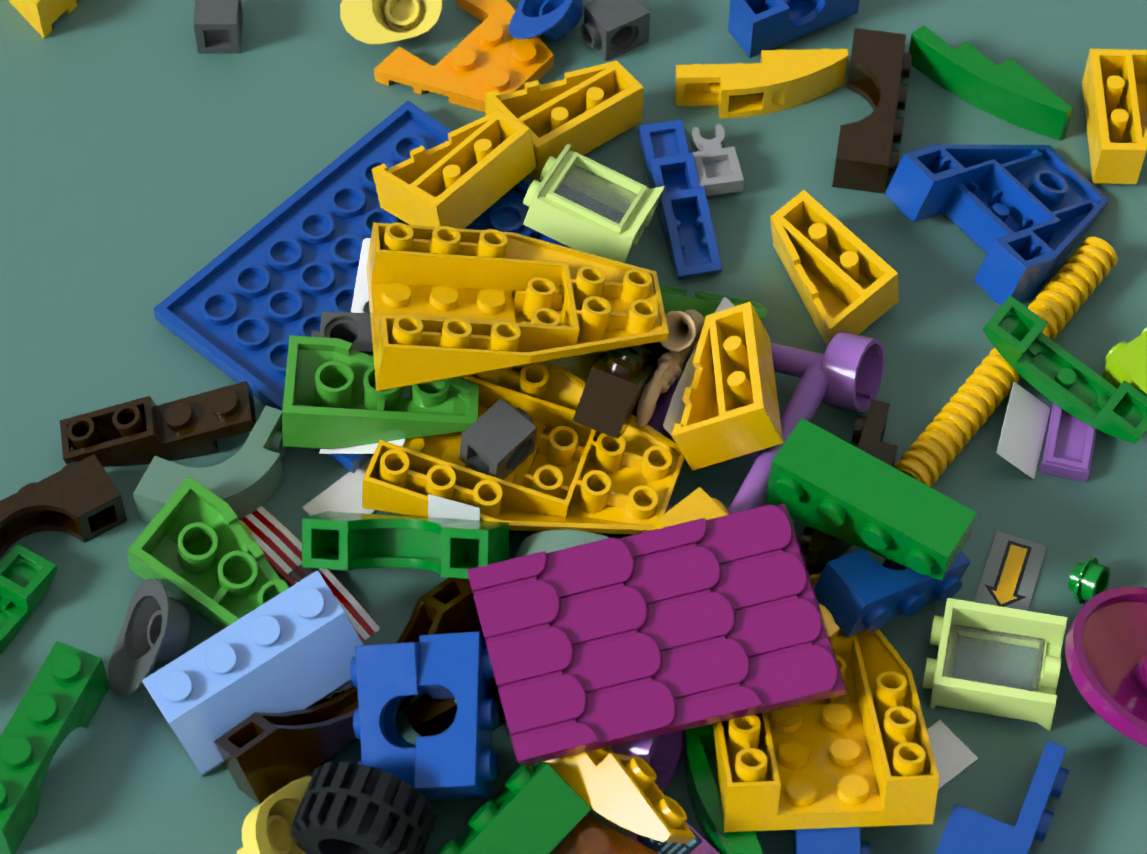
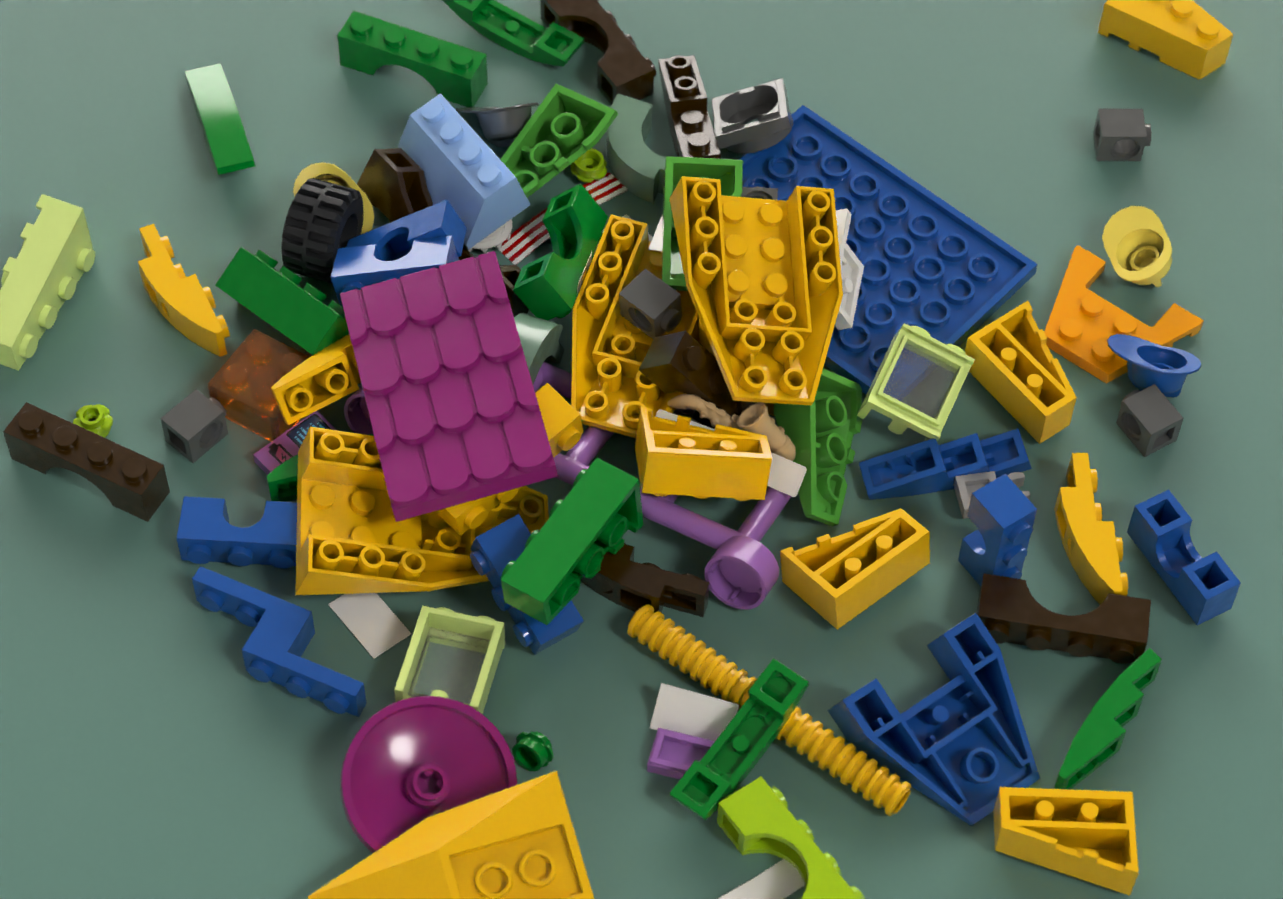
camera: 90 degrees right, 0 degrees up
(155, 334) = (762, 102): none -> dark grey piece
(460, 176) = (930, 283): yellow wedge -> none
(810, 115) = (1003, 531): none -> blue arch
(1010, 572) = (550, 699): sticker -> none

